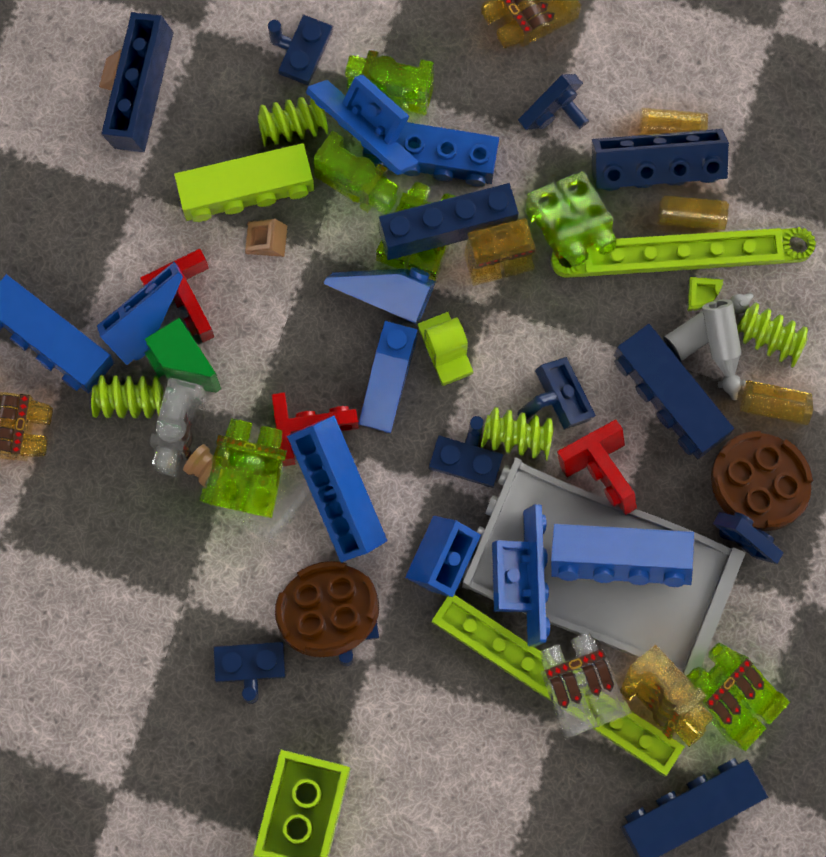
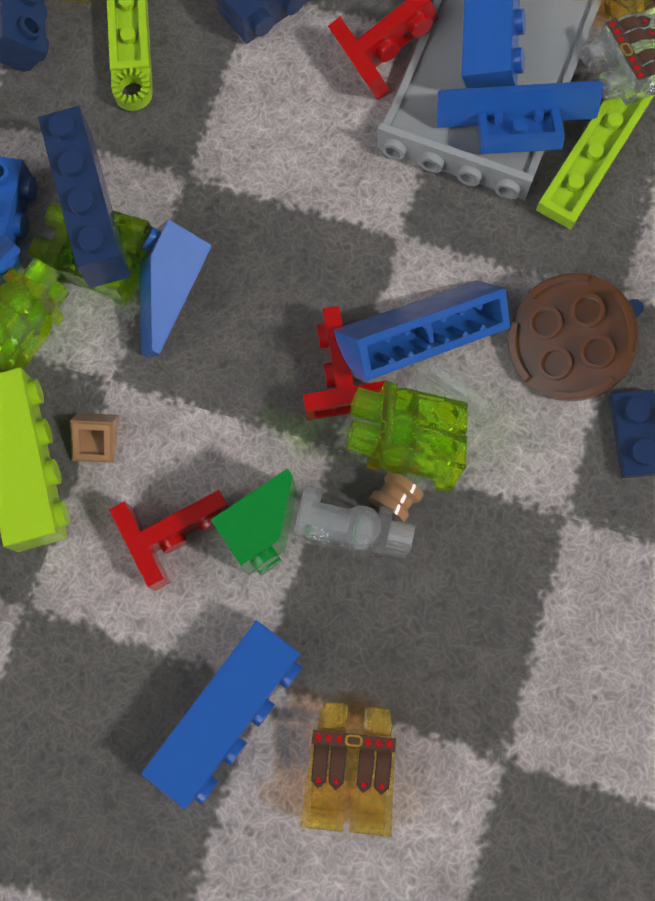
camera: 85 degrees left, 0 degrees up
(126, 397) = (308, 597): lime piece -> none
(140, 316) = (203, 582): blue slope -> none
(388, 376) = (272, 278): blue slope -> none
(443, 556) = (498, 208): blue brick -> none
(446, 347) = (237, 213): lime tile -> none
(467, 459) = (373, 196): dark blue plate -> none
(504, 244) = (121, 146): clear yellow hips -> none
(518, 433) = (345, 132): lime piece -> none
(561, 392) = (294, 88): dark blue plate -> none
(572, 218) = (84, 68): clear neon green hips -> none

